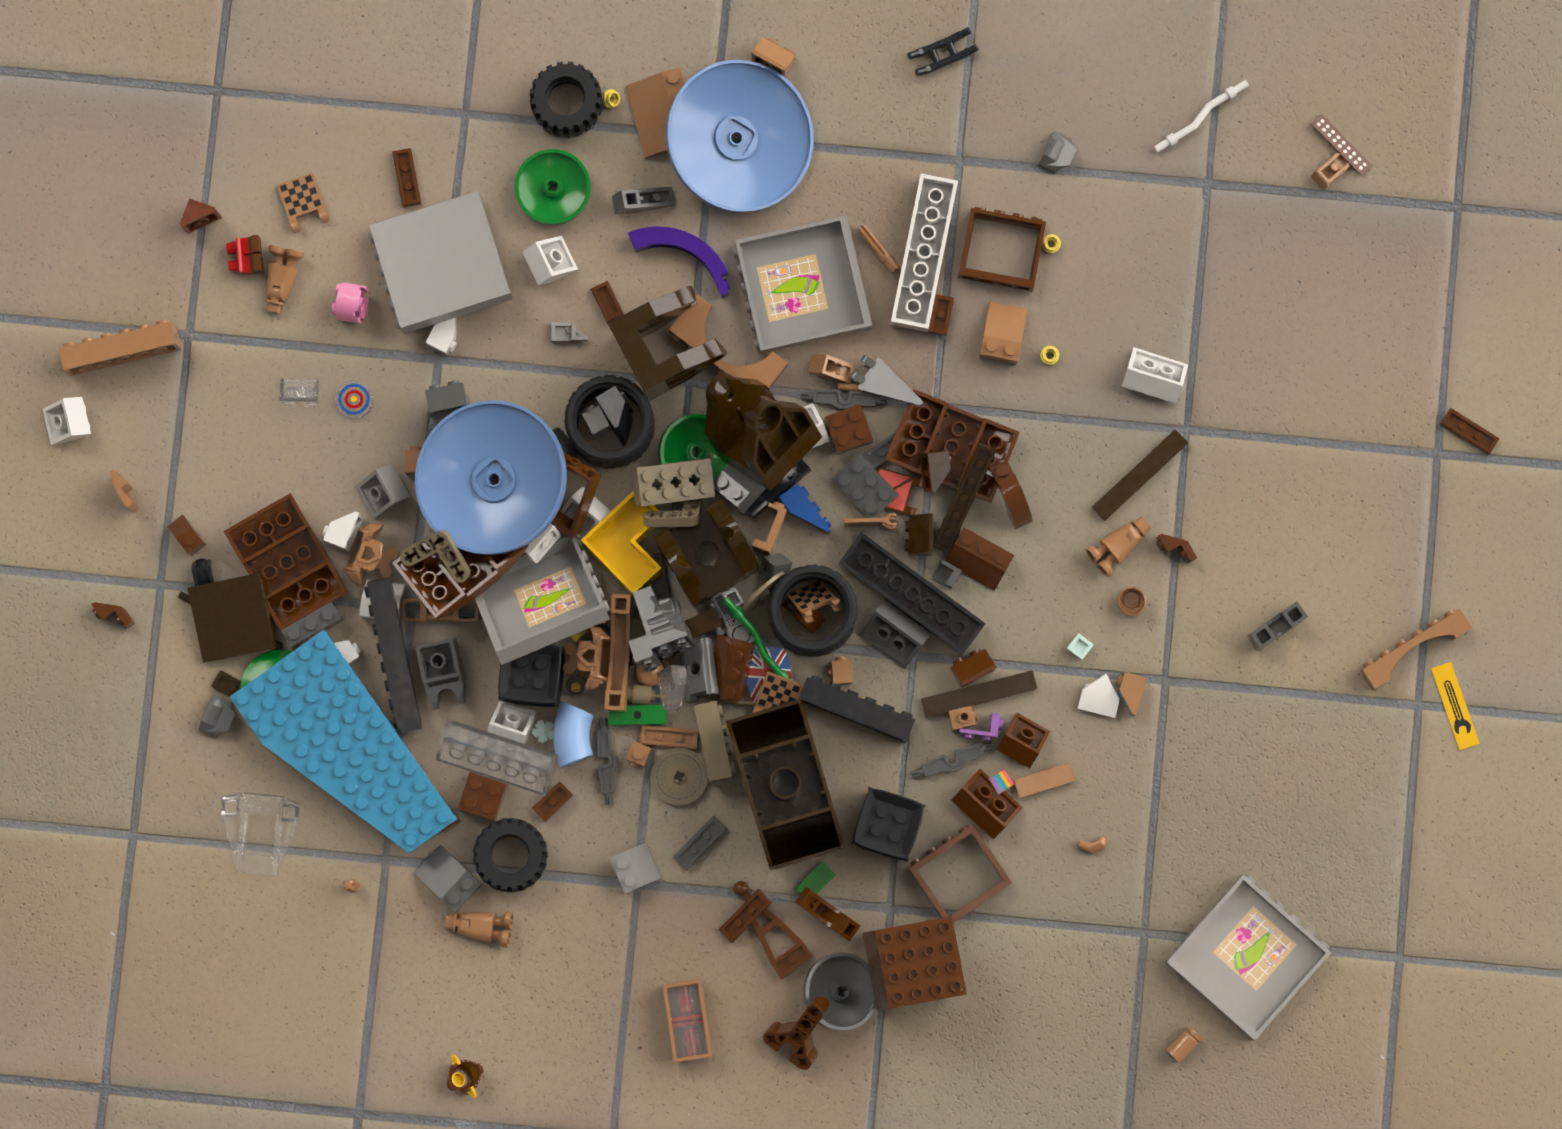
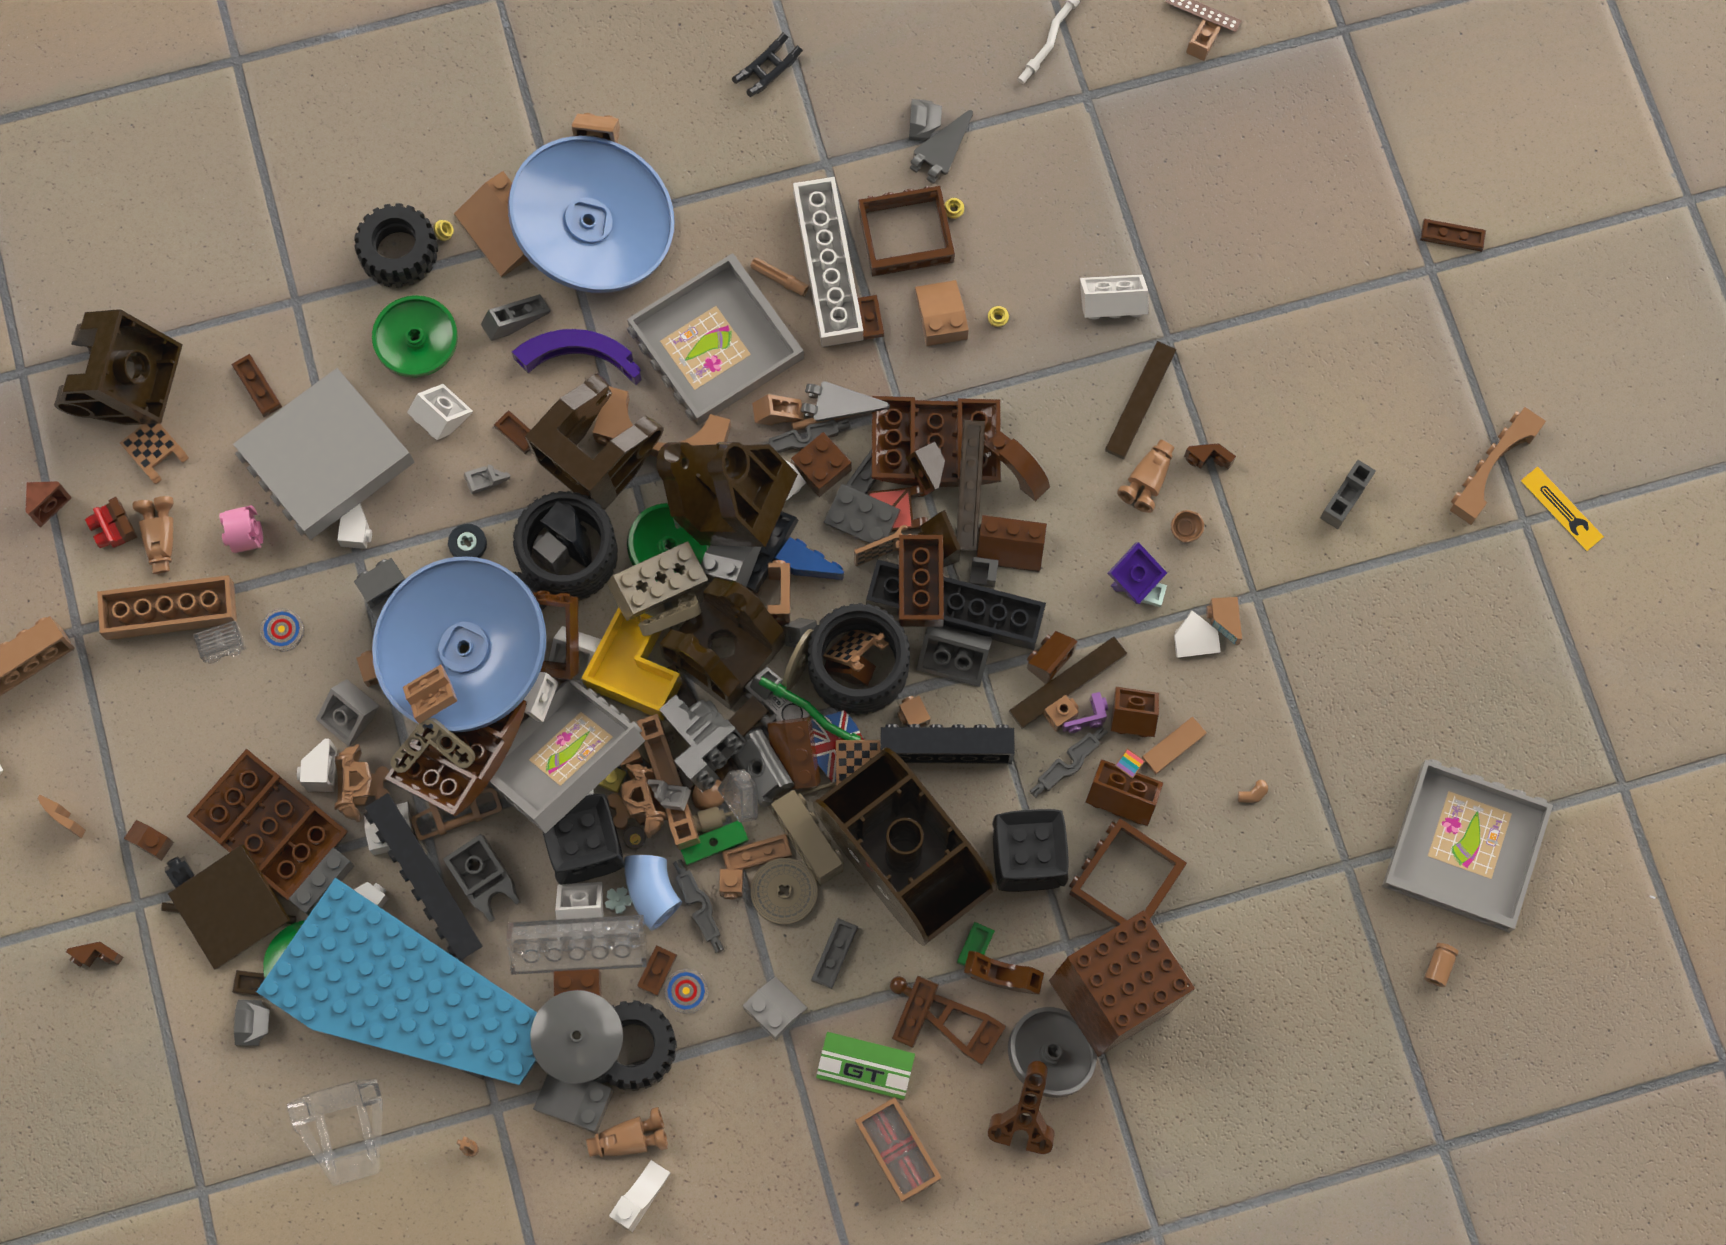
camera: 25 degrees left, 10 degrees down
(267, 346) = (166, 607): none -> medium nougat brick
(284, 137) = (106, 388): none -> dark brown brick
(452, 511) = (430, 694): none -> medium nougat slope
(471, 976) = (638, 1199): none -> white arch
(486, 829) = (570, 1058): none -> dark grey dish
(538, 376) = (469, 532): none -> black bush
(570, 826) = (686, 991): none -> tile
(615, 665) = (669, 795): none -> light grey slope
(689, 942) = (865, 1065): none -> bright green slope
(888, 566) = (921, 581): none -> reddish brown brick
(1062, 185) = (941, 148): none -> dark grey flag
(1071, 626) = (1136, 573): none -> dark purple bracket

